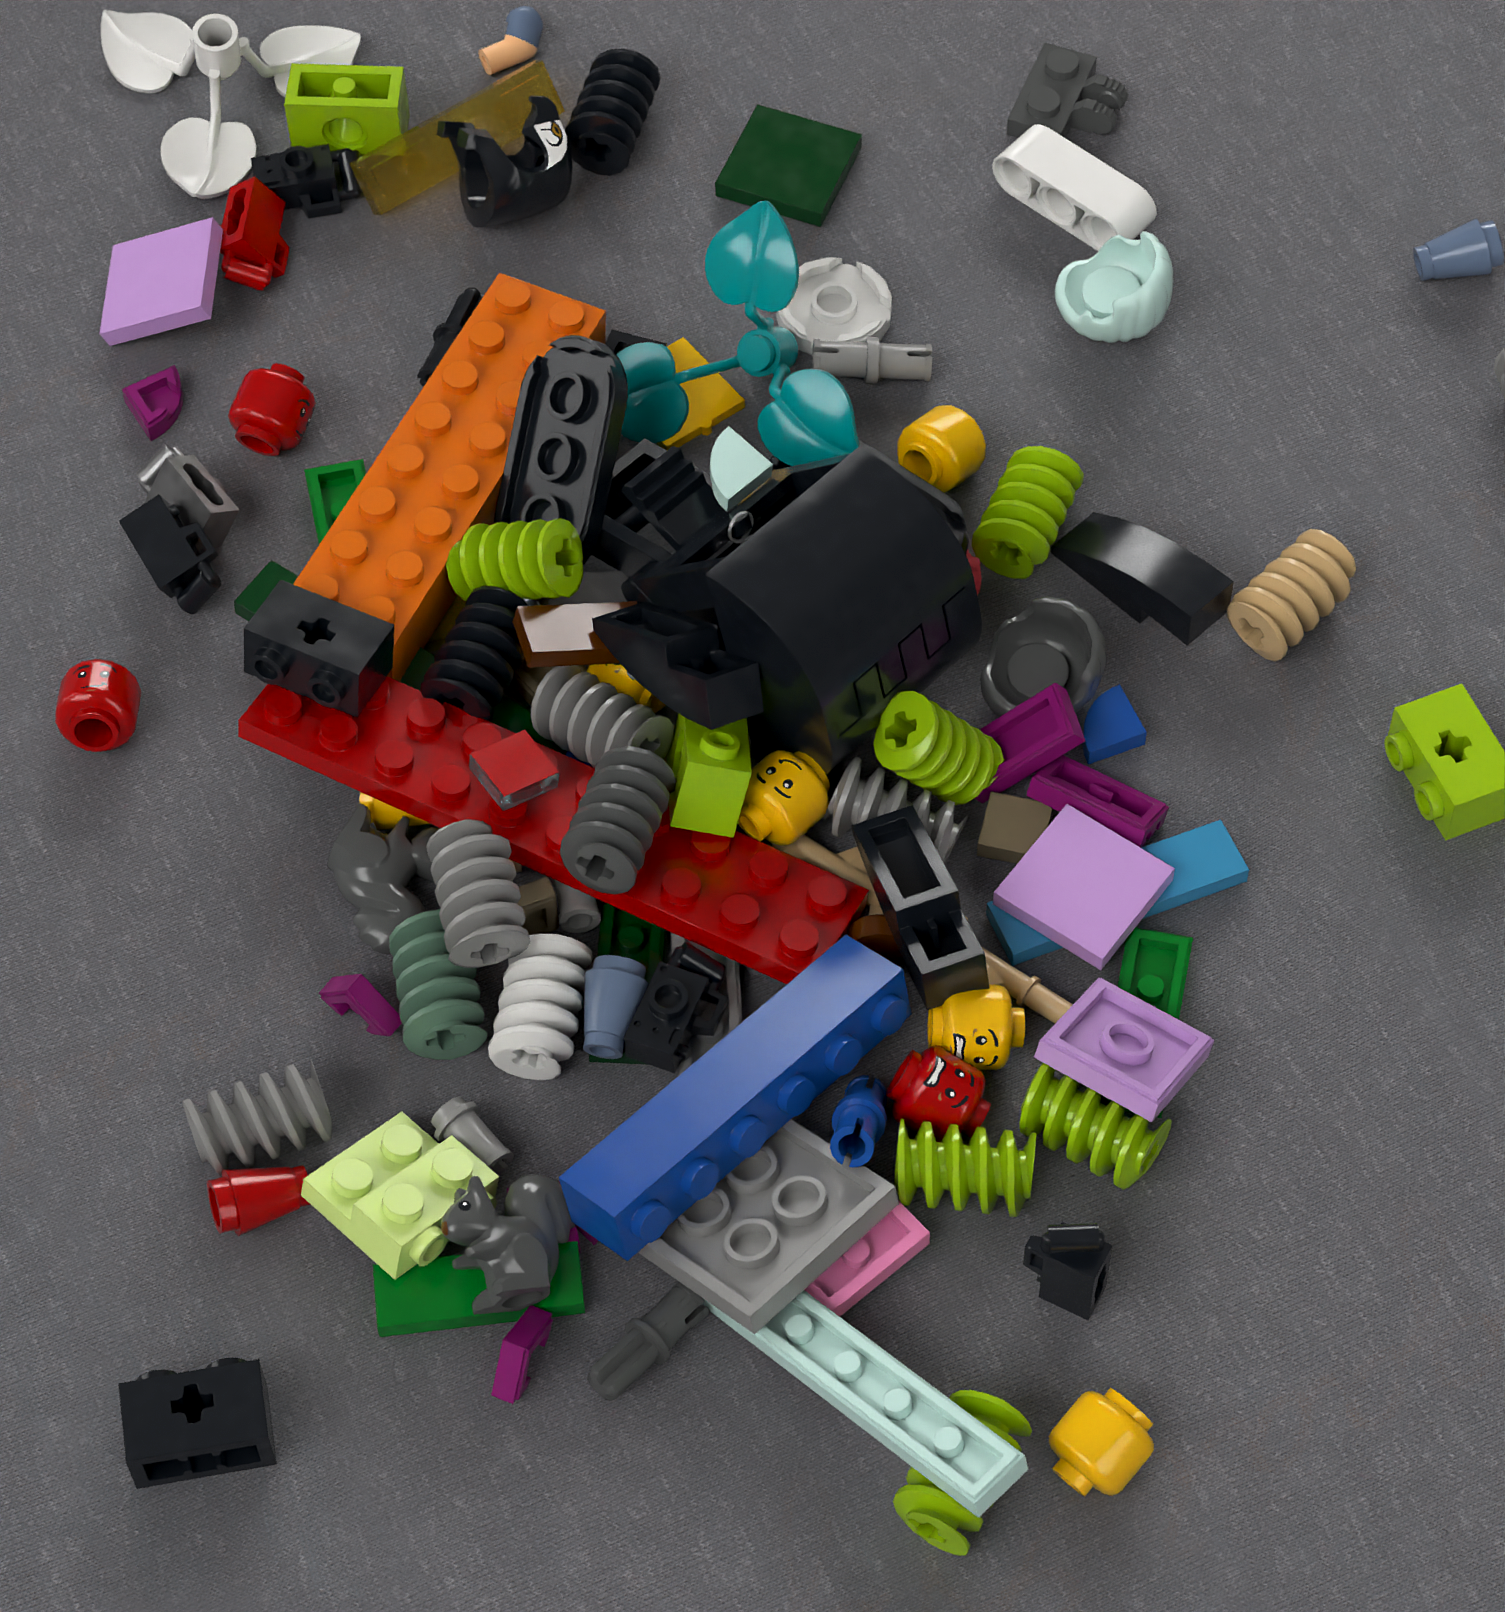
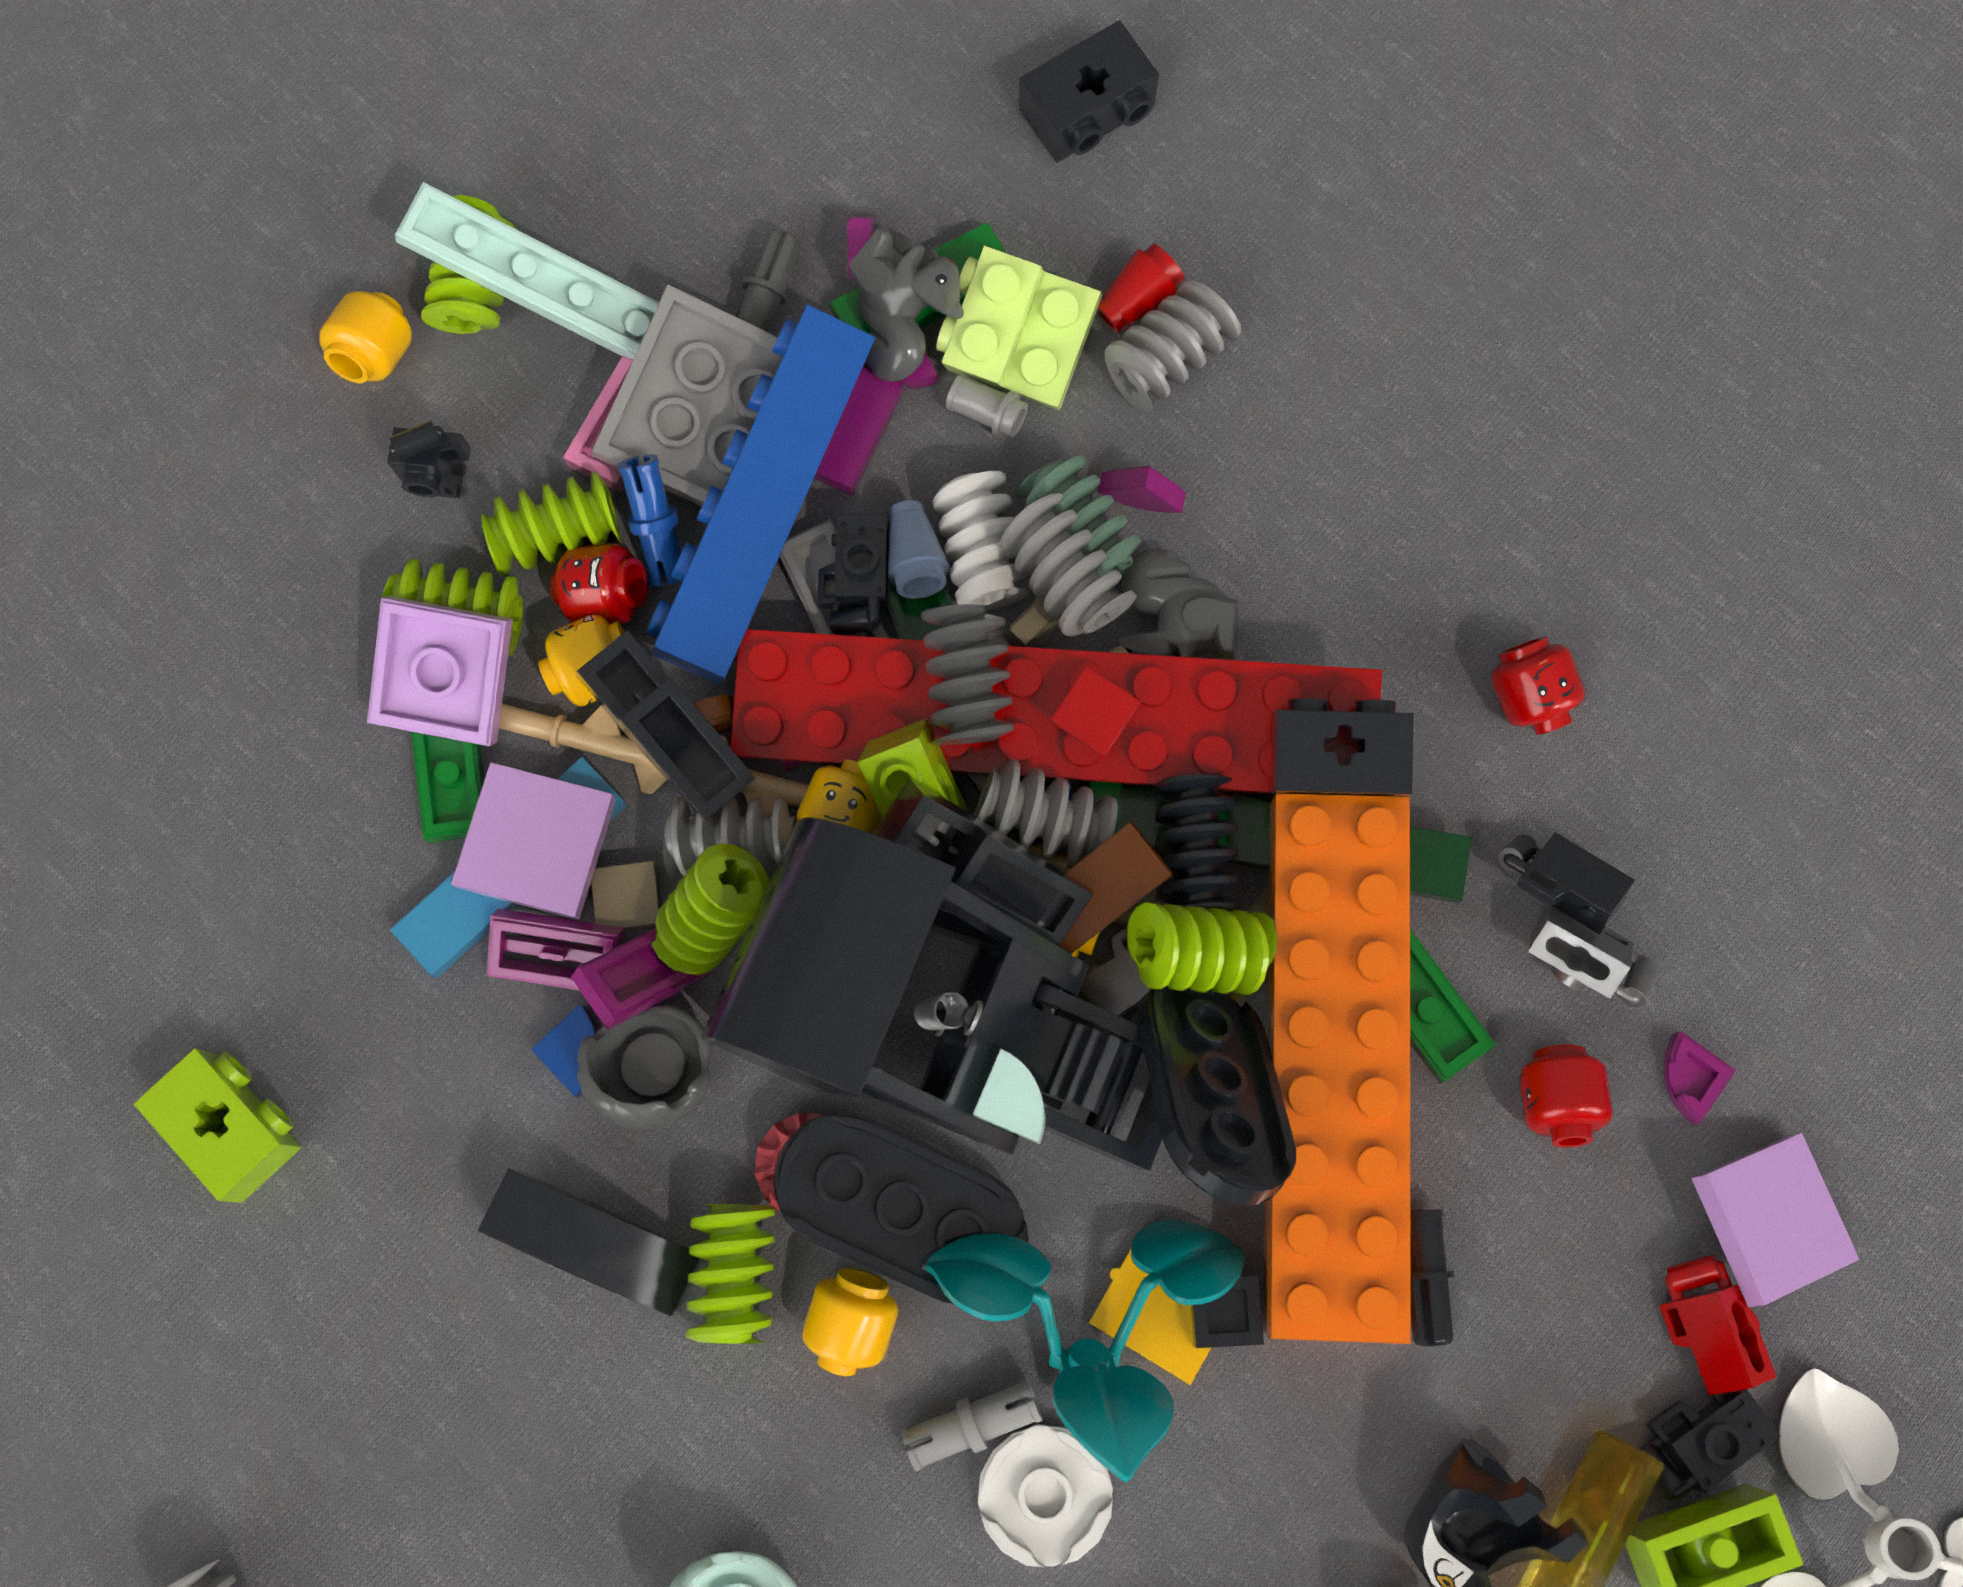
camera: 160 degrees right, 20 degrees up
(1292, 594) = (426, 1265): tan piece -> none

